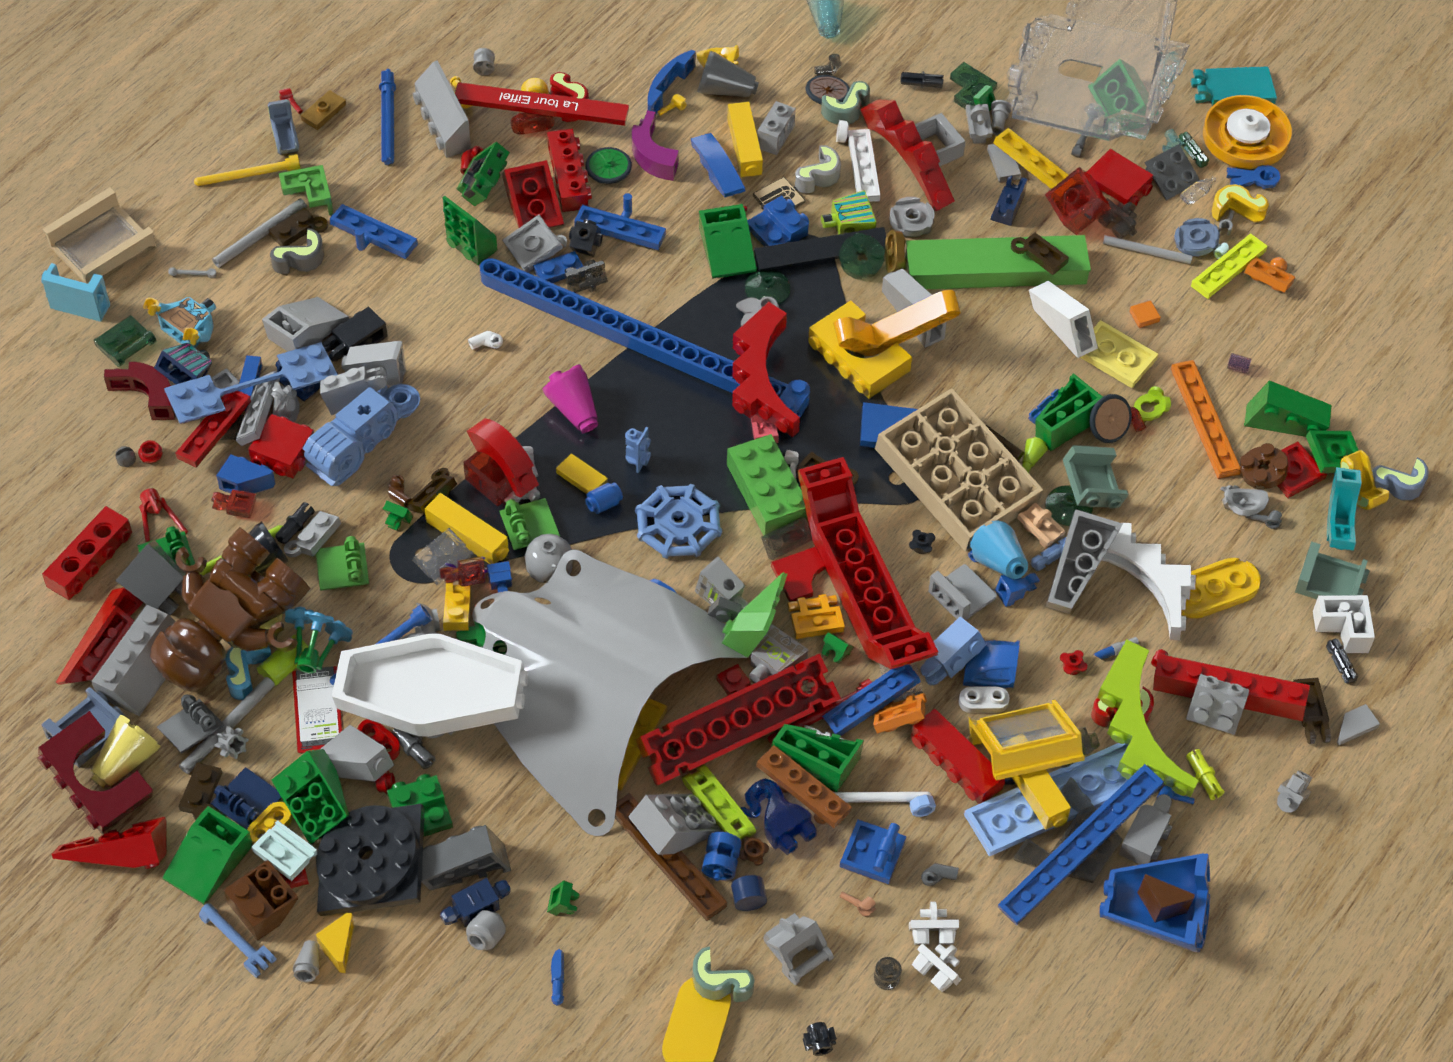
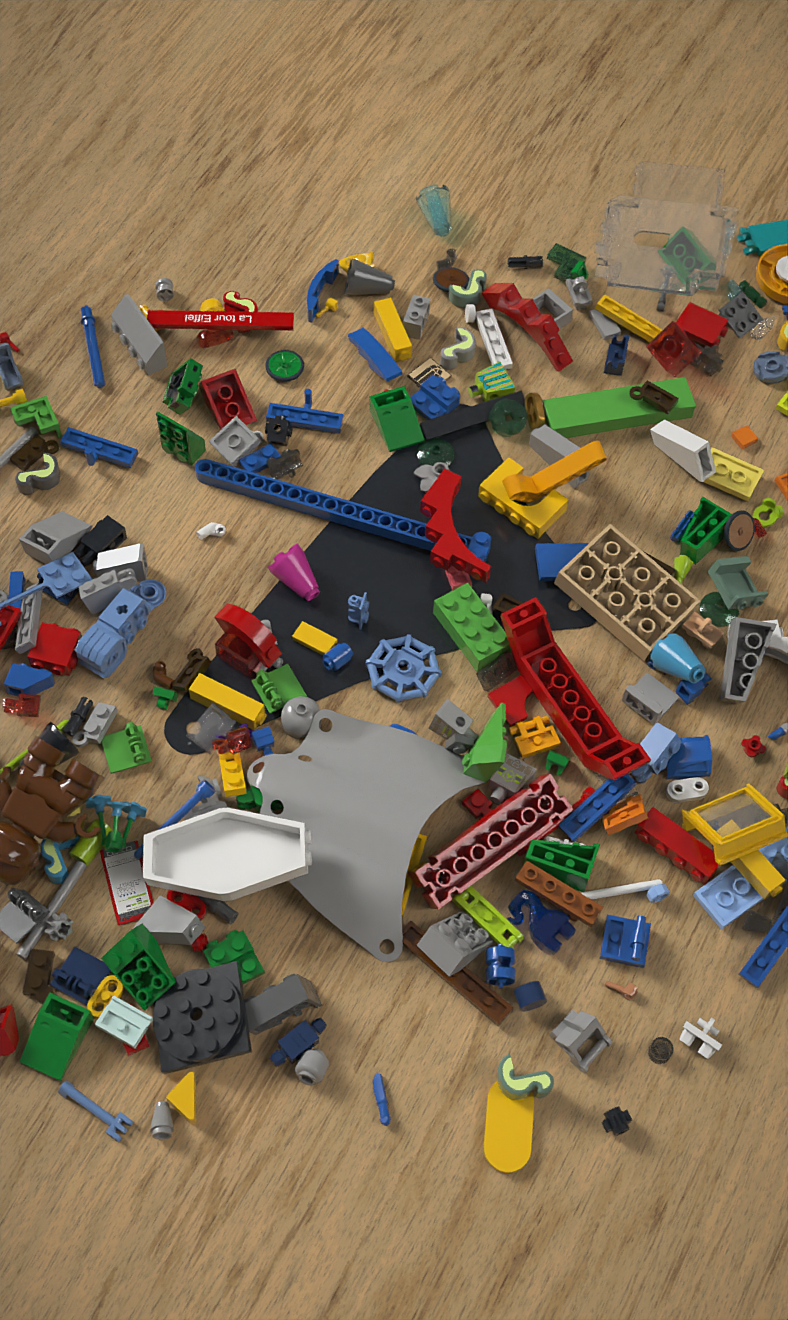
camera: 10 degrees left, 5 degrees up
(261, 899) = (111, 1069): reddish brown slope -> none
(285, 402) = (51, 609): light grey hat -> none
(323, 110) = (37, 347): pearl gold plate -> none
(467, 157) = (166, 373): red arm -> none
(560, 899) = (370, 1026): green tile -> none
(568, 170) = (252, 374): red brick -> none
(649, 156) = (319, 354): magenta arch -> none
(754, 844) = (530, 951): reddish brown plate -> none
(912, 227) = (544, 387): light grey plate -> none
(921, 547) = (607, 663): black plate -> none
(921, 928) = (680, 1005): white hips -> none
(937, 872) = (679, 953): dark grey arm -> none
(1000, 113) = (594, 281): light grey pin -> none
(1048, 555) = (715, 653): light blue axle -> none
(1146, 249) = (734, 382): light grey bar -> none

